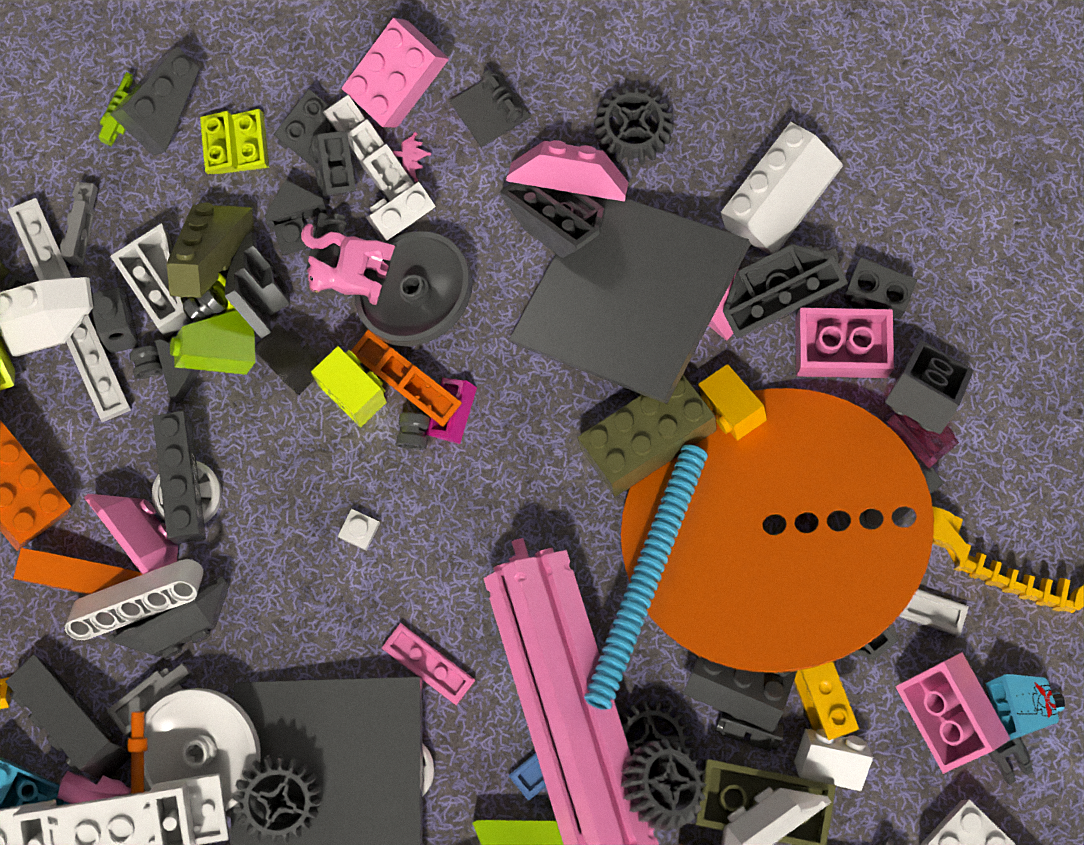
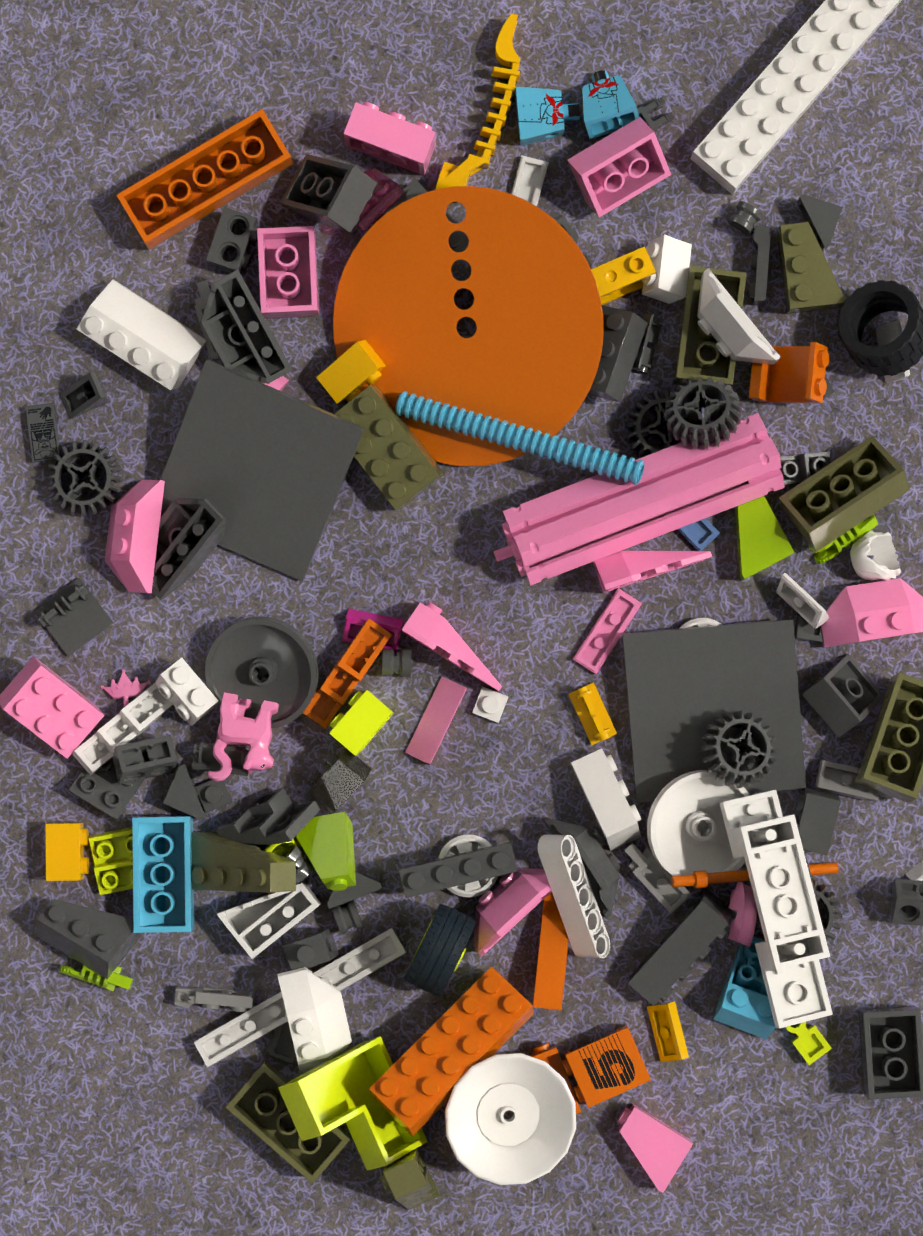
camera: 95 degrees left, 10 degrees up
(94, 450) = (440, 950): none -> black wheel
(212, 174) = (162, 874): none -> medium azure slope
(240, 647) = (607, 798): none -> white wedge
(247, 85) = (66, 851): none -> yellow brick
(337, 641) = (592, 713): none -> yellow hinge
(347, 470) = (436, 720): none -> bright pink slope
(441, 472) = (438, 635): none -> bright pink wedge
(496, 695) = (634, 566): none -> bright pink wedge
(685, 89) = (43, 432): none -> dark grey tile
(721, 133) = (84, 395): none -> dark grey slope
(948, 263) = (205, 179): none -> orange brick
(990, 459) = (390, 137): none -> bright pink brick
(1015, 631) = (542, 114): none -> medium azure torso

